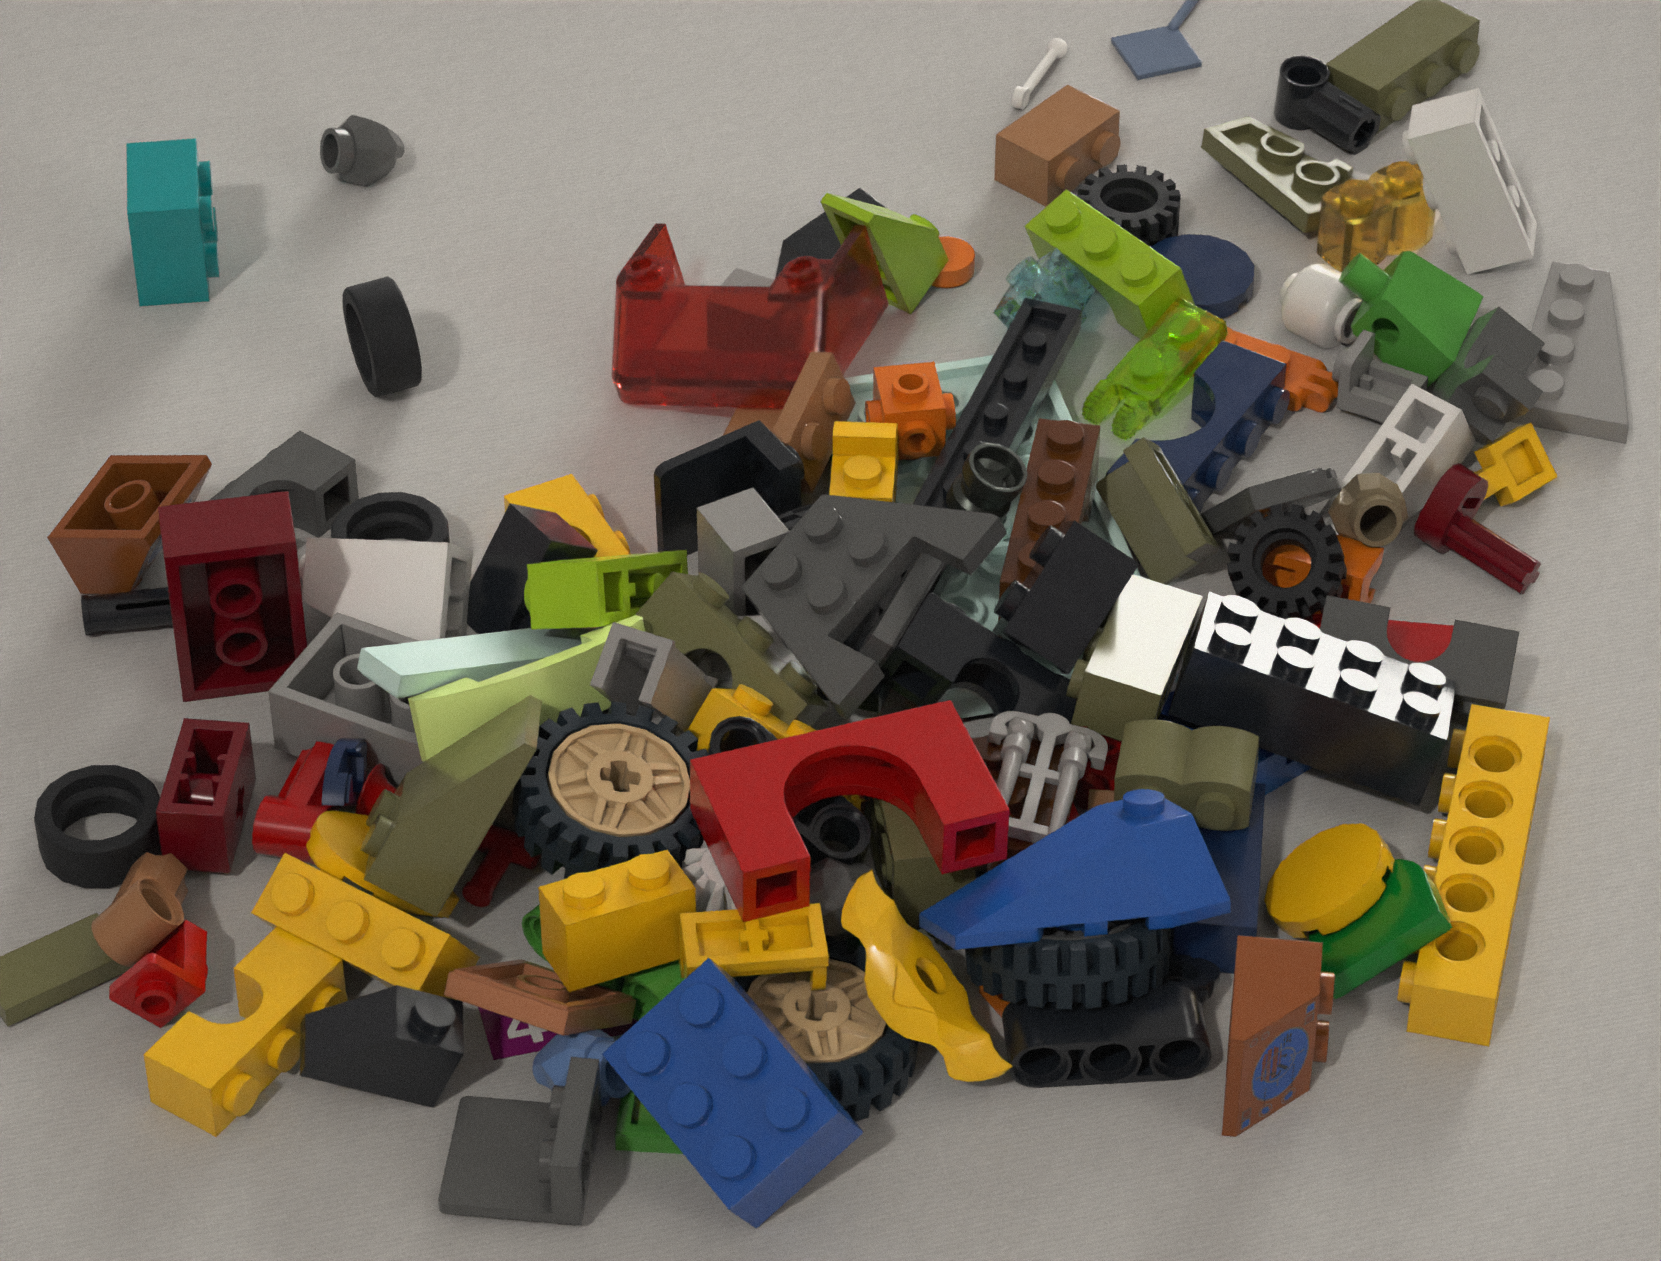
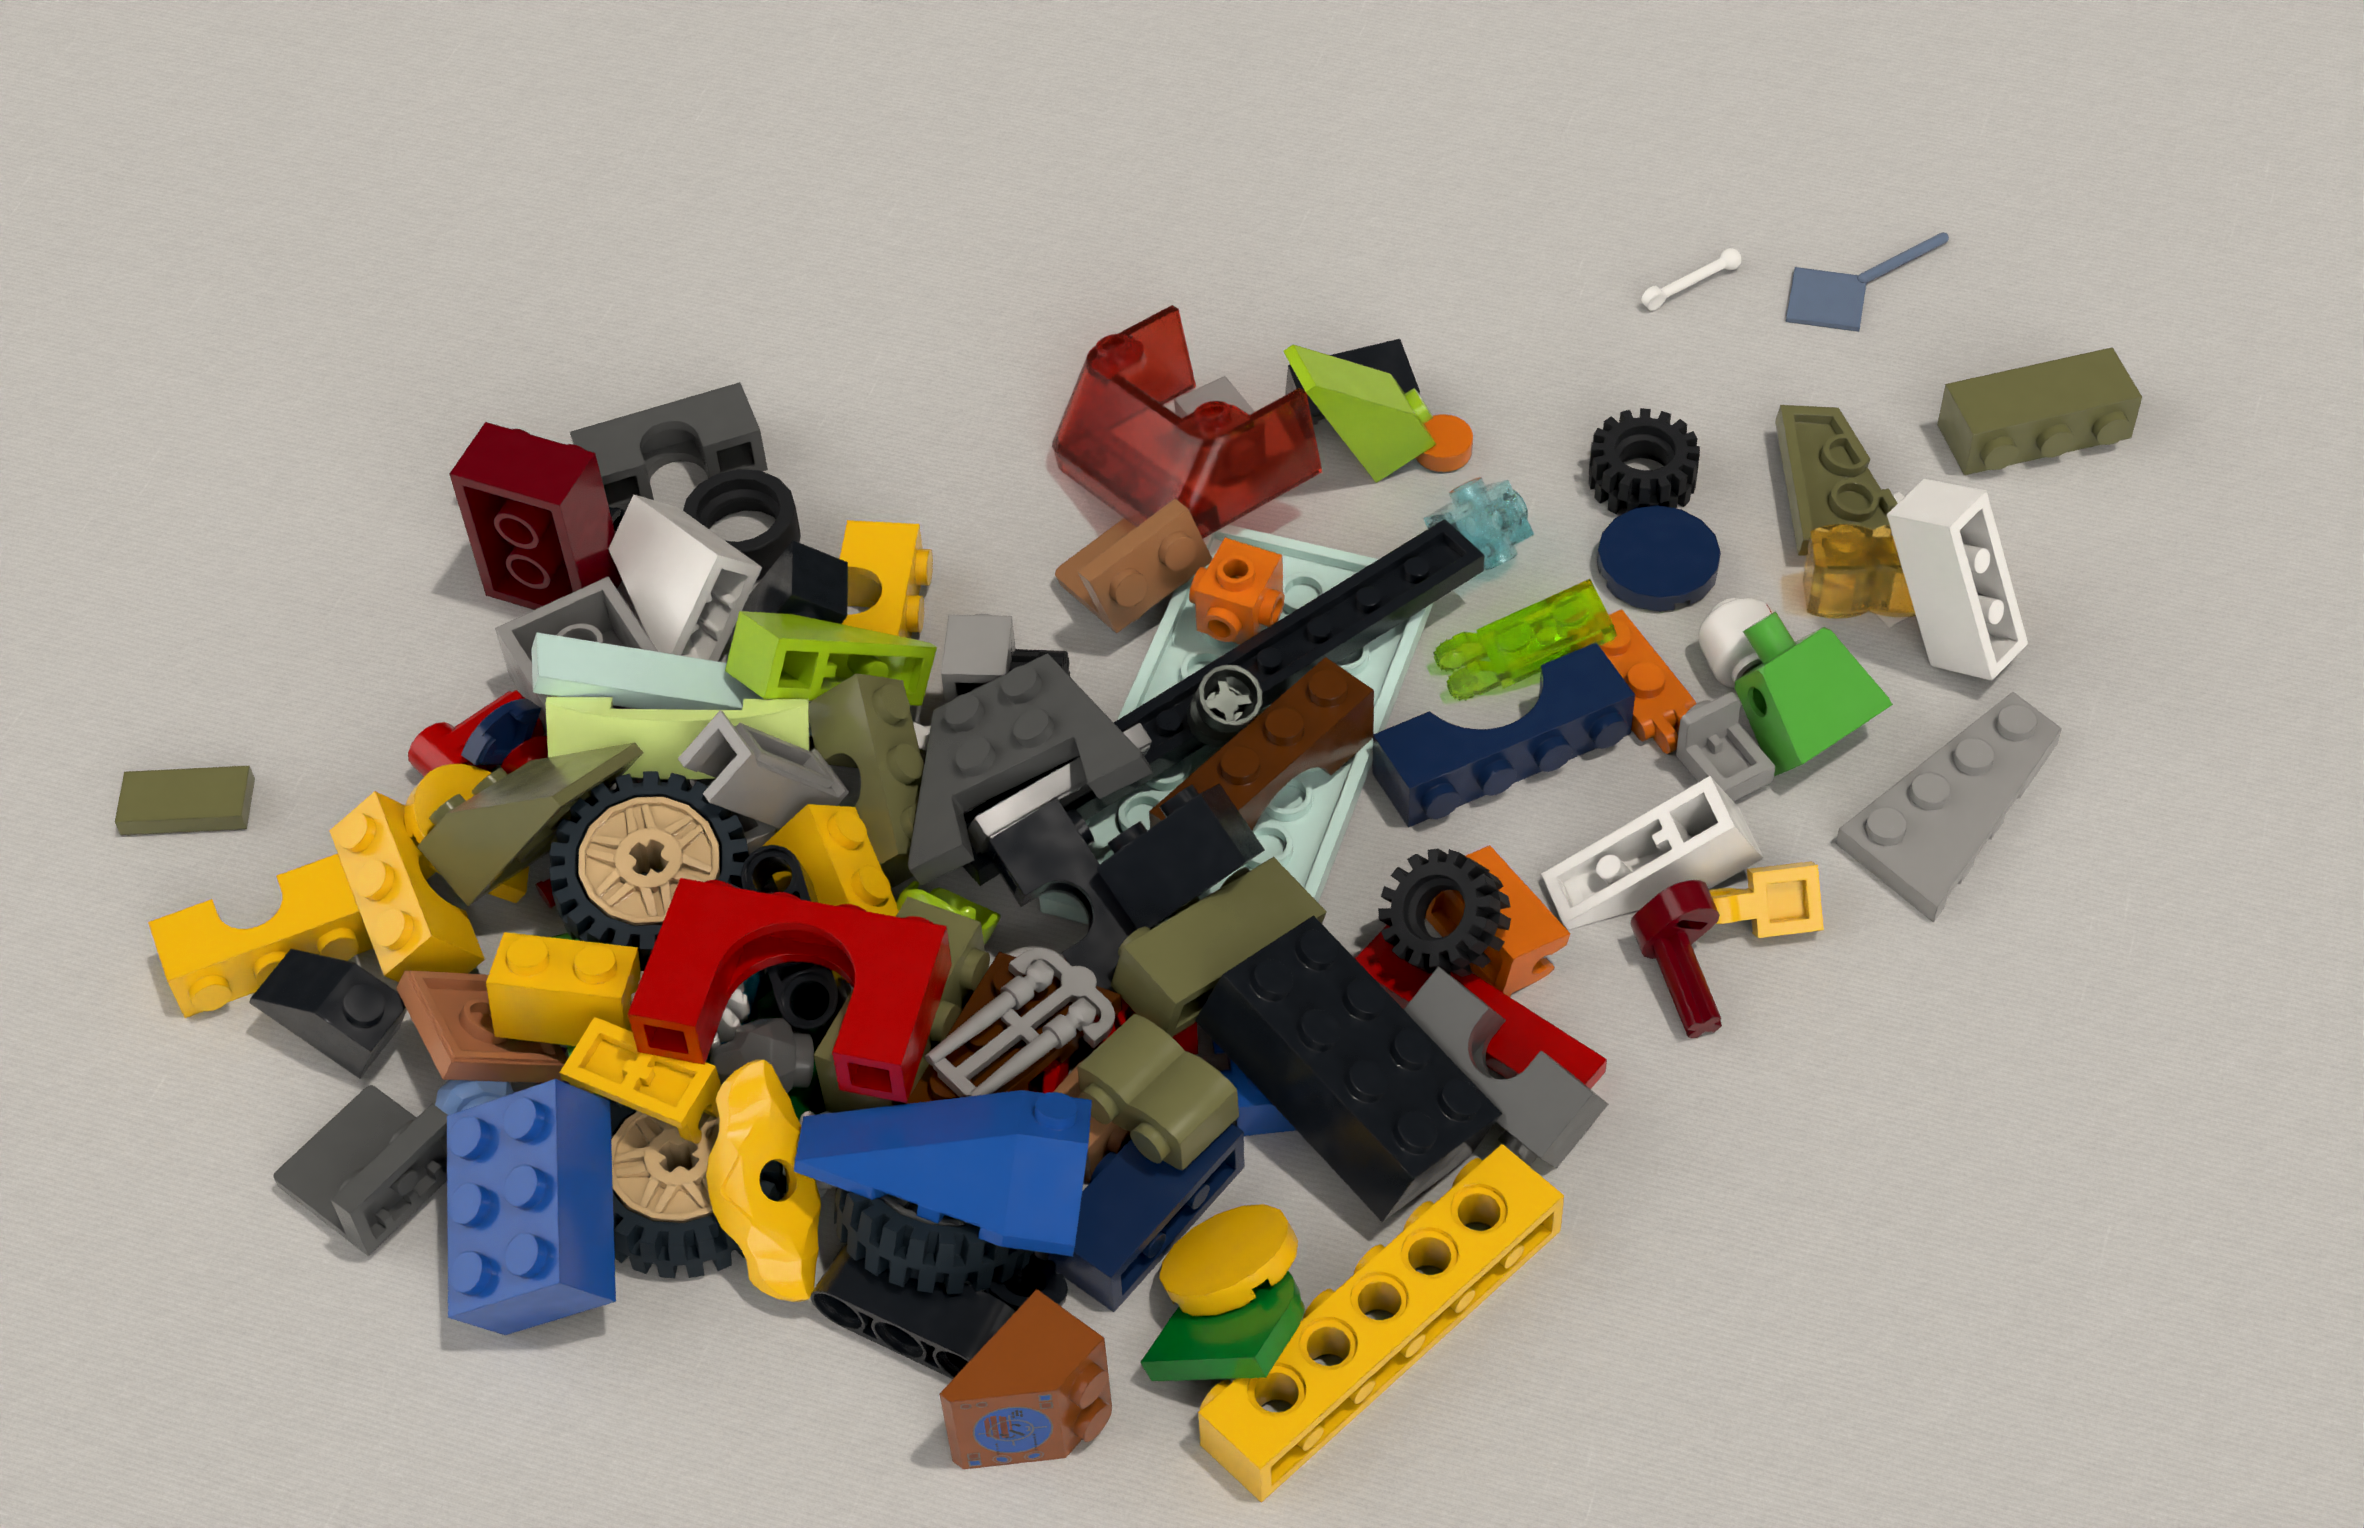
camera: 35 degrees right, 10 degrees up
(92, 792) = (305, 652): black tyre -> none
(115, 523) = (547, 397): dark orange slope -> none
(143, 909) = (271, 781): medium nougat piece -> none
(166, 977) = (253, 856): red bracket -> none
(171, 222) = (802, 132): teal brick -> none
(207, 794) = (395, 698): dark red brick -> none
(360, 150) = (1031, 122): dark grey rock -> none
(382, 336) = (881, 317): black tyre -> none
(720, 469) = (1038, 593): black bracket -> none
(865, 460) = (1144, 638): yellow brick -> none
(1057, 145) = (1634, 364): medium nougat brick -> none
(1119, 265) = (1559, 512): lime arch -> none
(1156, 514) = (1387, 797): olive panel -> none
(1298, 489) = (1510, 834): dark grey tile -> none
(1310, 101) = (1922, 424): black piece -> none
(1369, 510) = (1578, 890): dark tan rock -> none
(1489, 374) = (1813, 797): dark grey arch -> none

